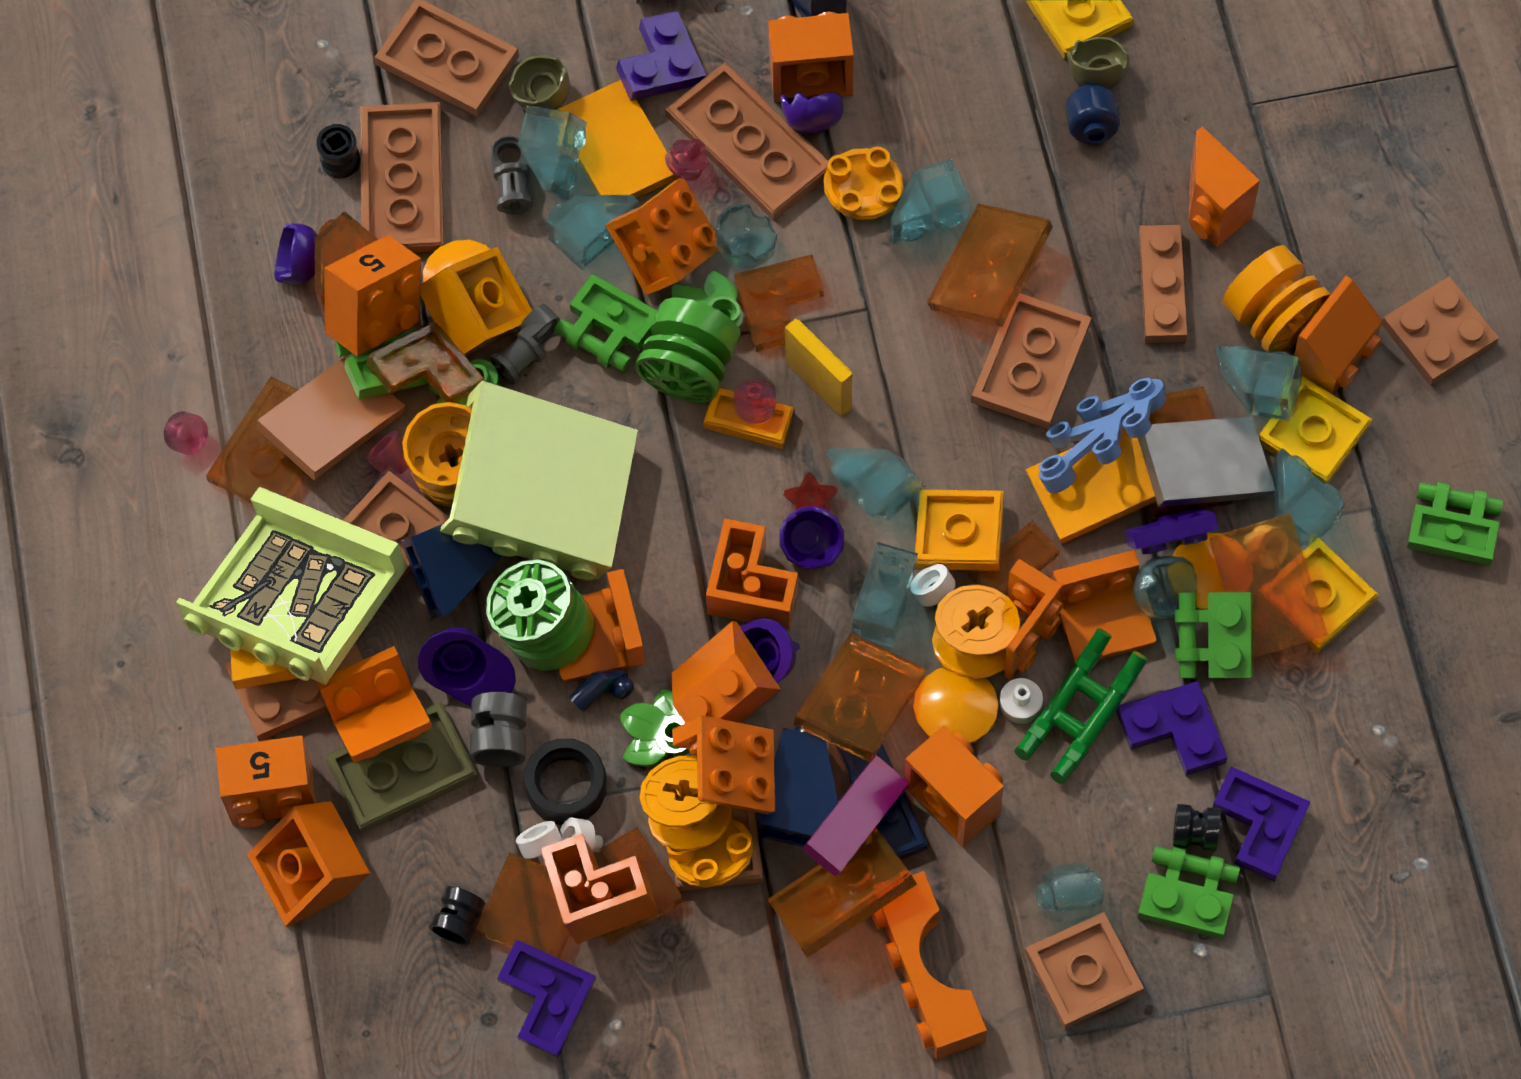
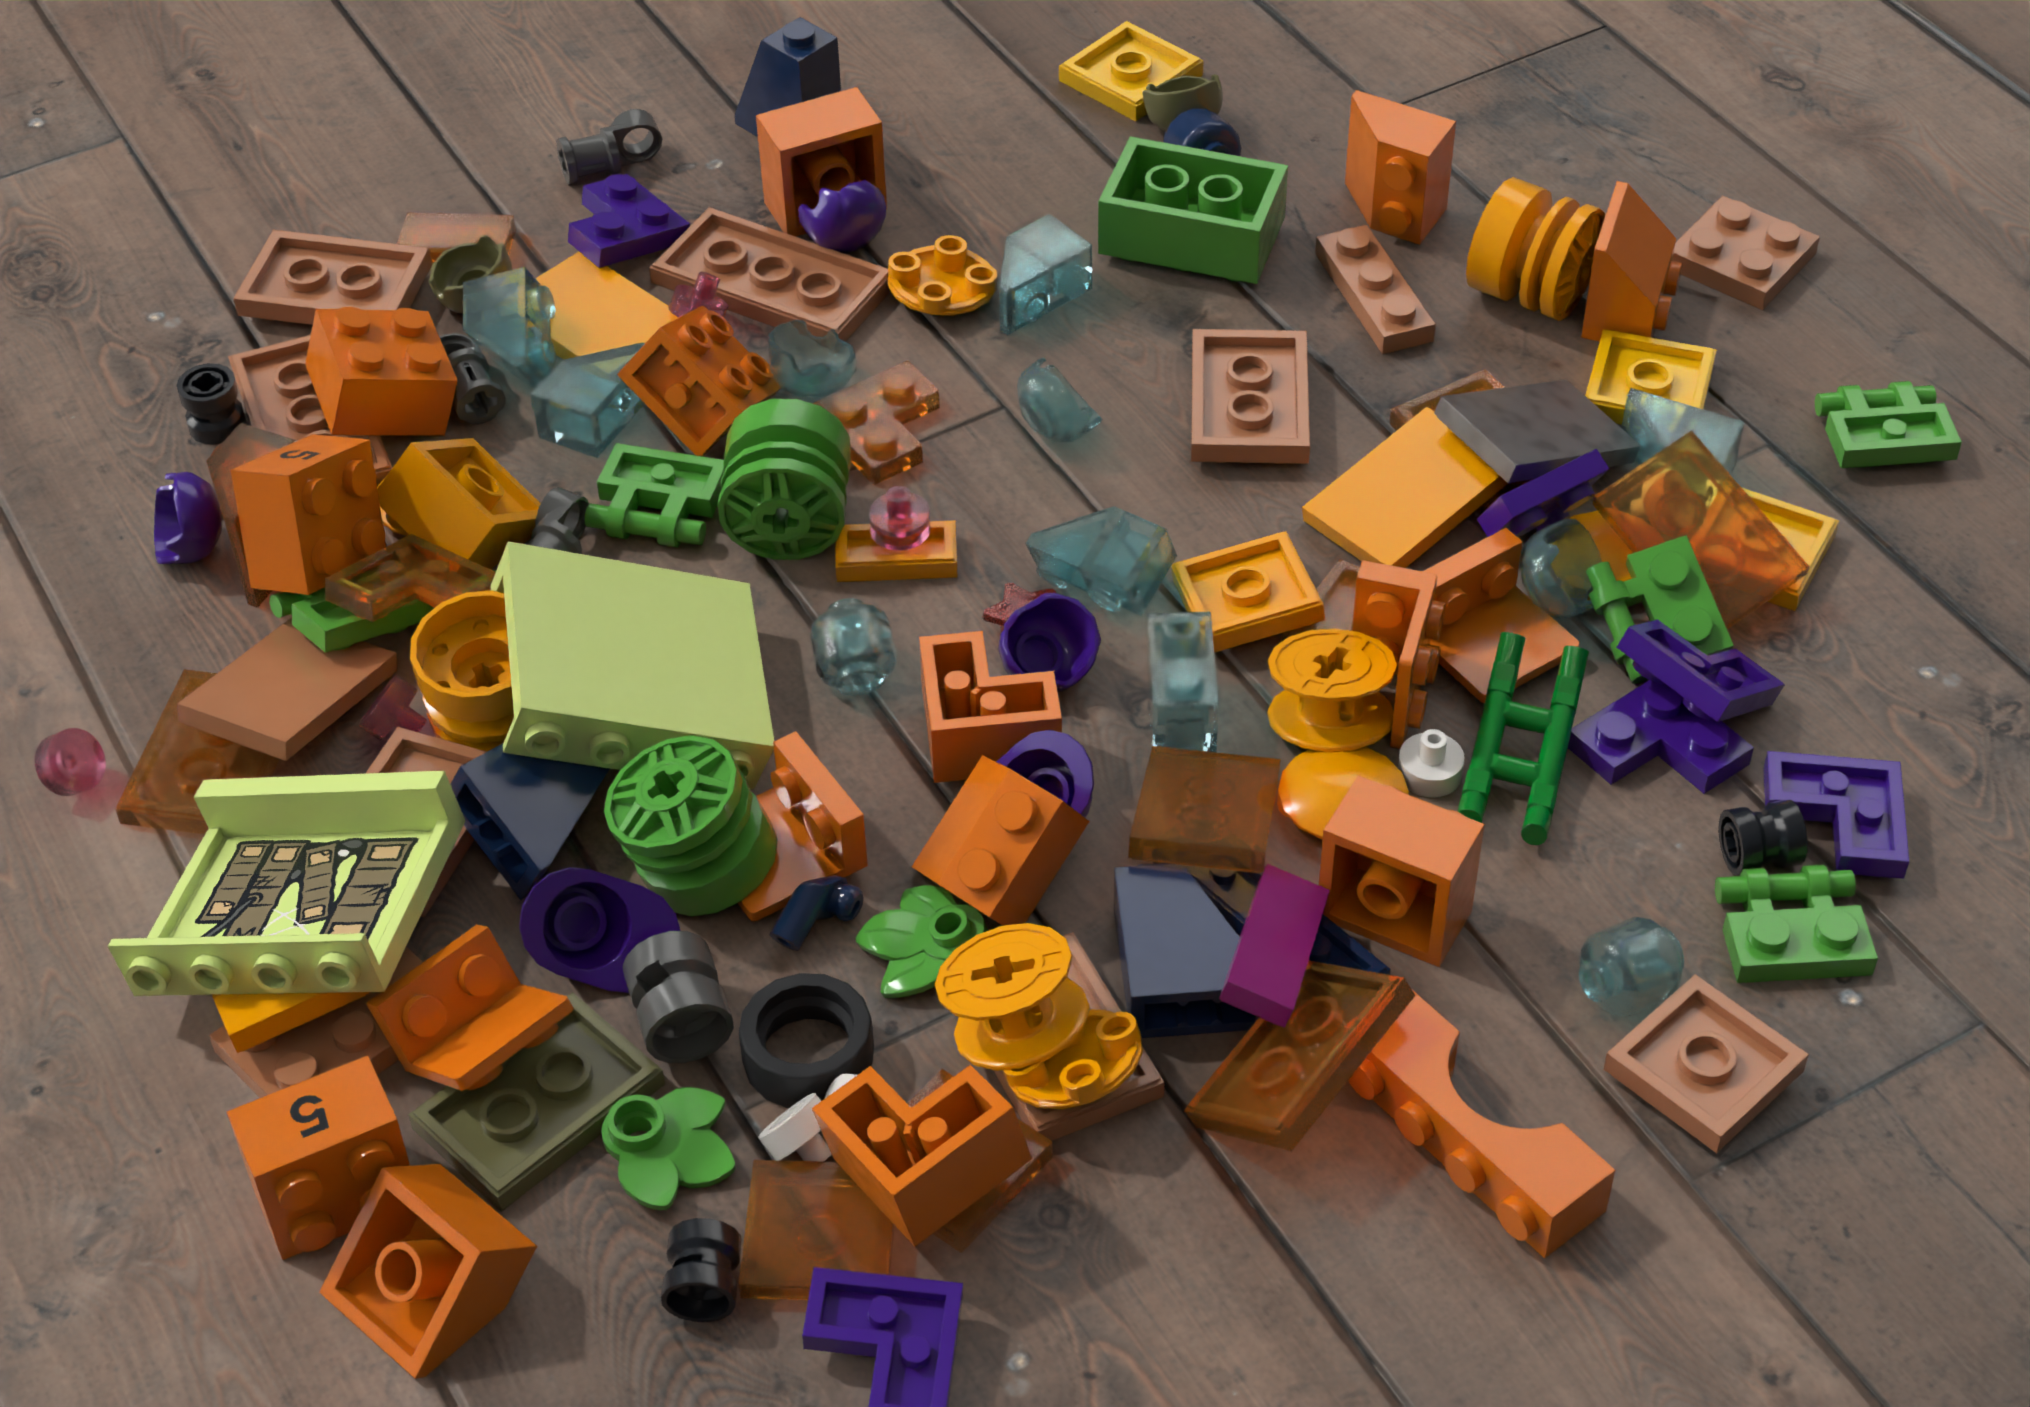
camera: 20 degrees left, 20 degrees down
(453, 166) = (380, 372): none -> orange brick
(467, 830) = (674, 1149): none -> bright green plate
(543, 34) = (448, 230): none -> clear orange tile
(690, 496) = (853, 647): none -> clear light blue head
(732, 762) = (1063, 904): orange bracket -> none
(818, 367) = (974, 454): yellow tile -> none
(896, 329) = (1053, 404): none -> clear light blue hair
(932, 585) = (1245, 660): white tile -> none
(990, 264) = (1147, 314): clear orange tile -> none
(1057, 178) = (1192, 209): none -> bright green brick
(1098, 433) = (1367, 435): medium blue plant -> none
(1211, 706) = (1711, 685): none -> dark purple plate
(1261, 380) = (1555, 336): clear light blue slope -> none

